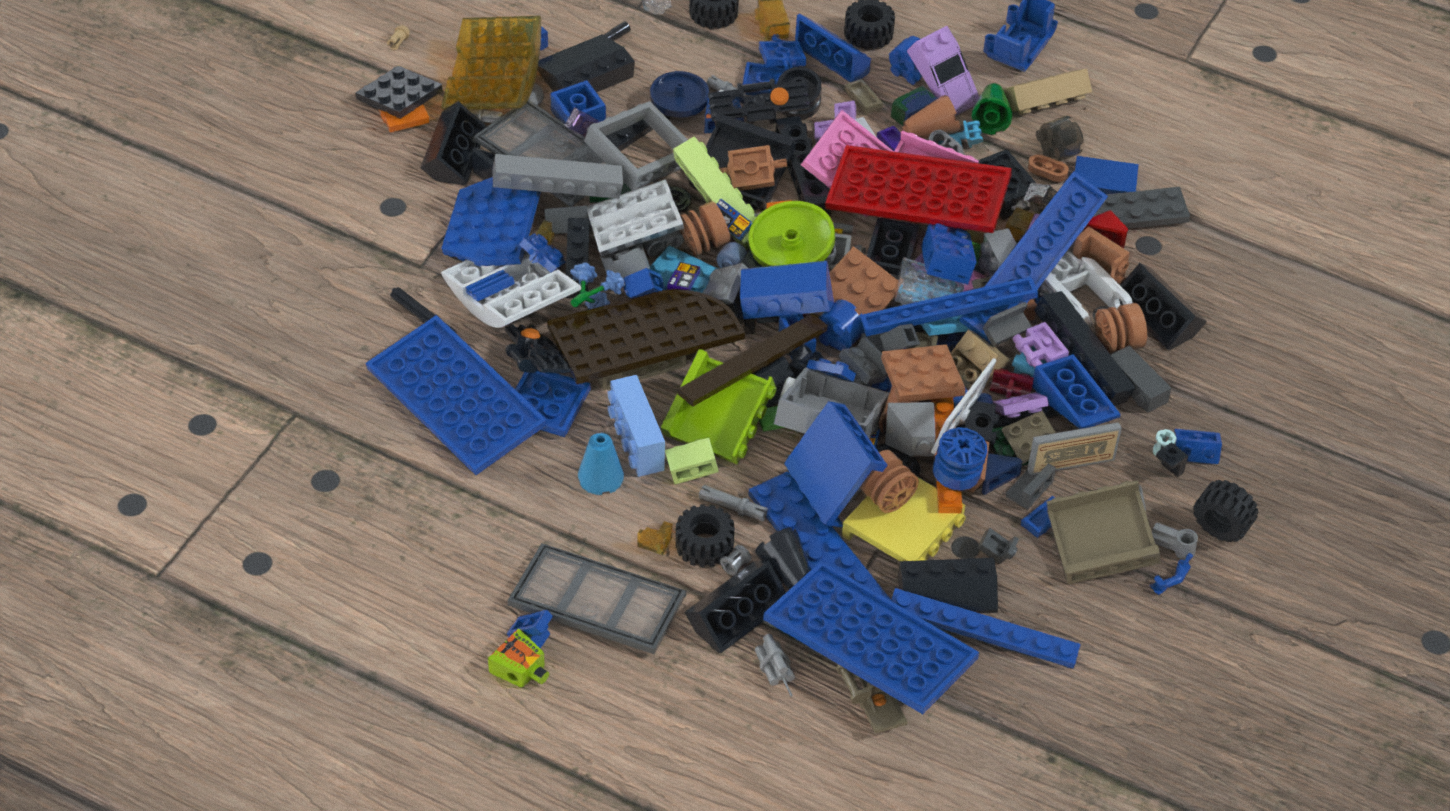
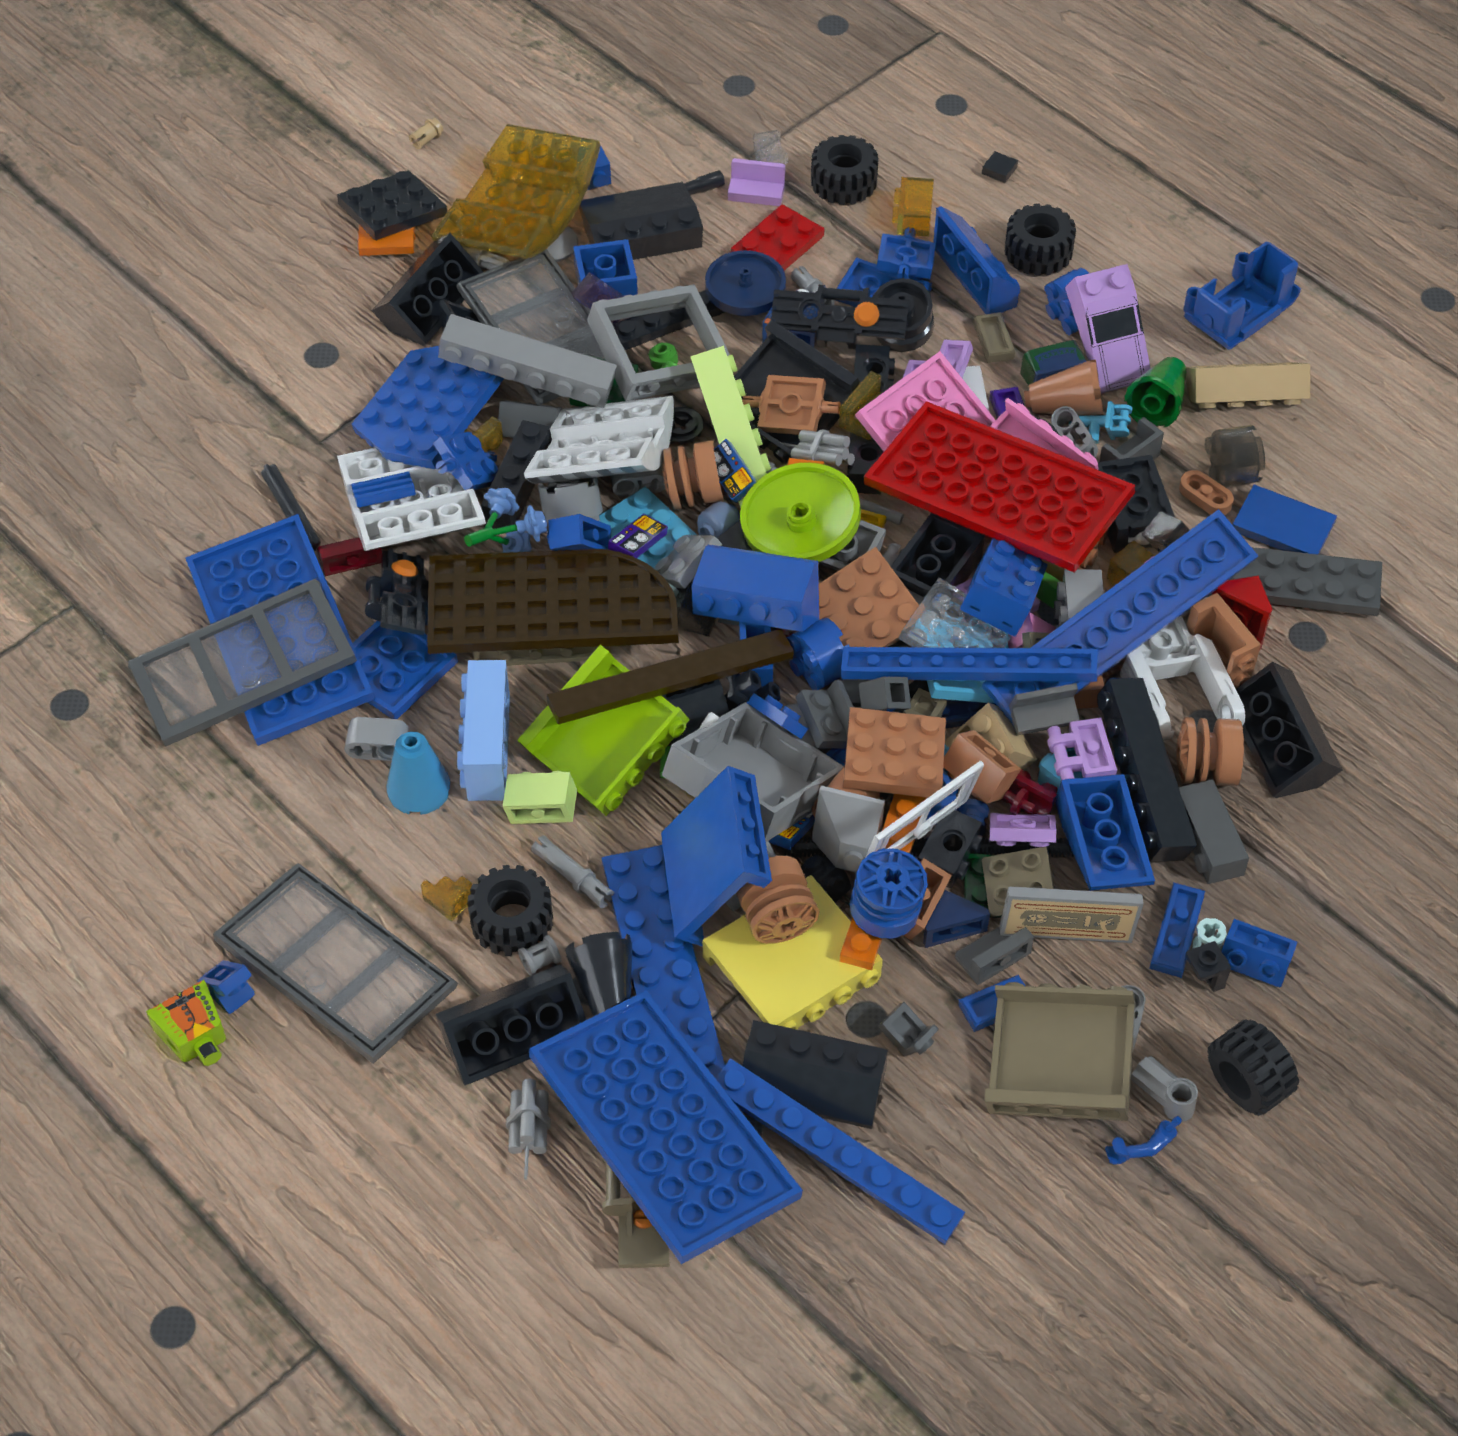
camera: 20 degrees right, 5 degrees up
(441, 421) = (241, 661): none -> door
(482, 335) = (347, 556): none -> dark red panel
(559, 450) = (373, 737): none -> light grey beam
(641, 156) = (663, 356): none -> bright green plate
(654, 24) = (757, 182): none -> lavender panel
(687, 56) = (782, 236): none -> red plate
(785, 190) = (822, 447): none -> light grey piece
(799, 154) = (860, 397): none -> clear yellow panel
(971, 365) = (997, 771): none -> nougat brick
(995, 143) = (1145, 442): none -> dark grey panel
(1140, 444) = (1177, 930): none -> blue tile

